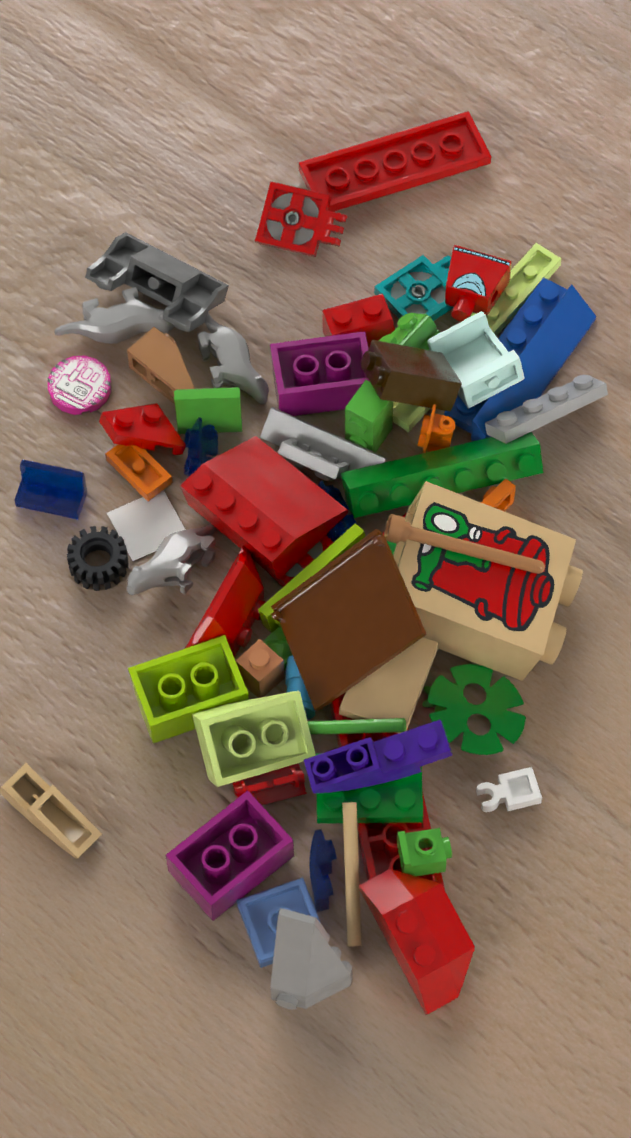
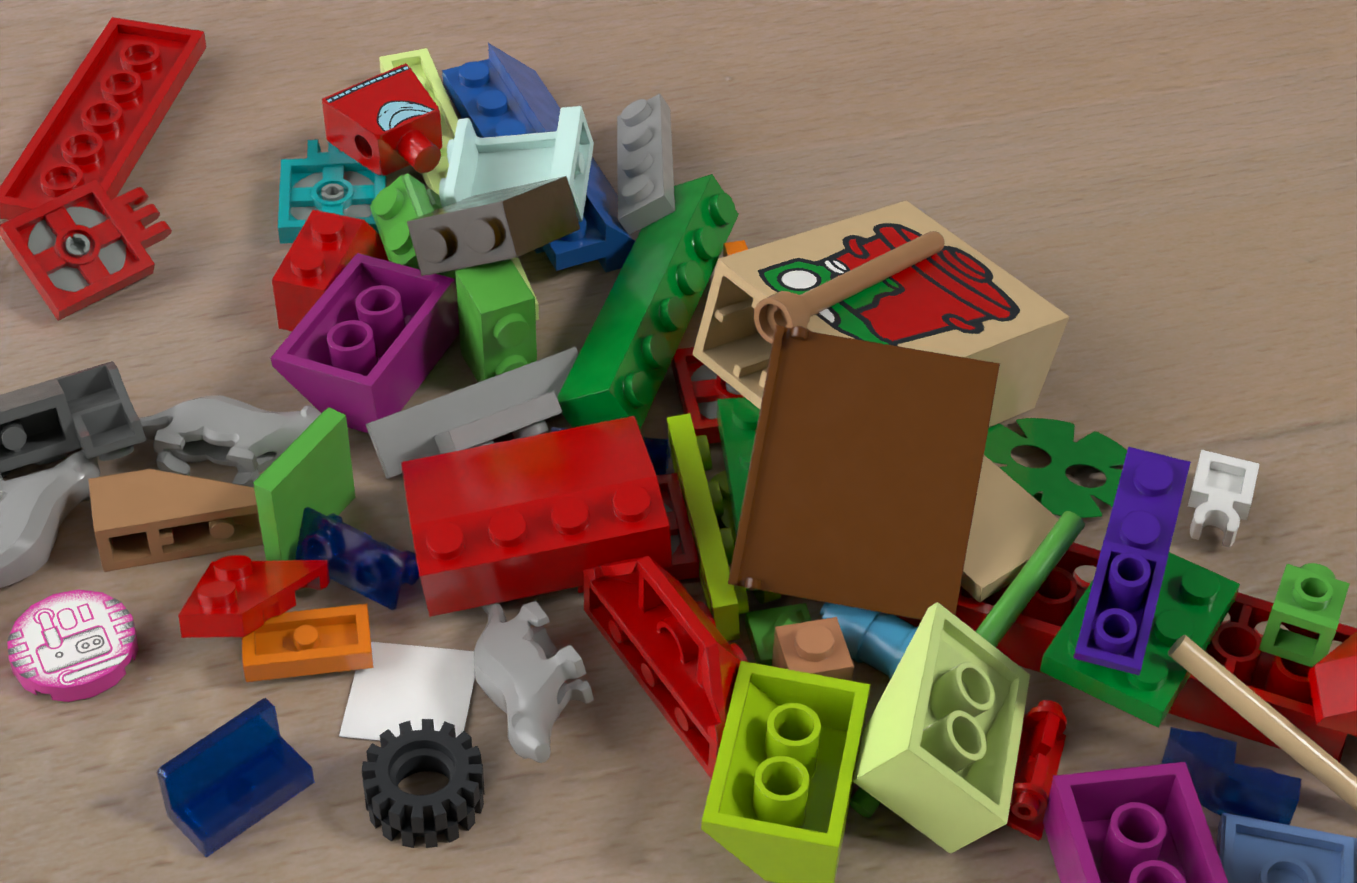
camera: 60 degrees left, 15 degrees down
(436, 431) = (584, 270): orange hinge -> none

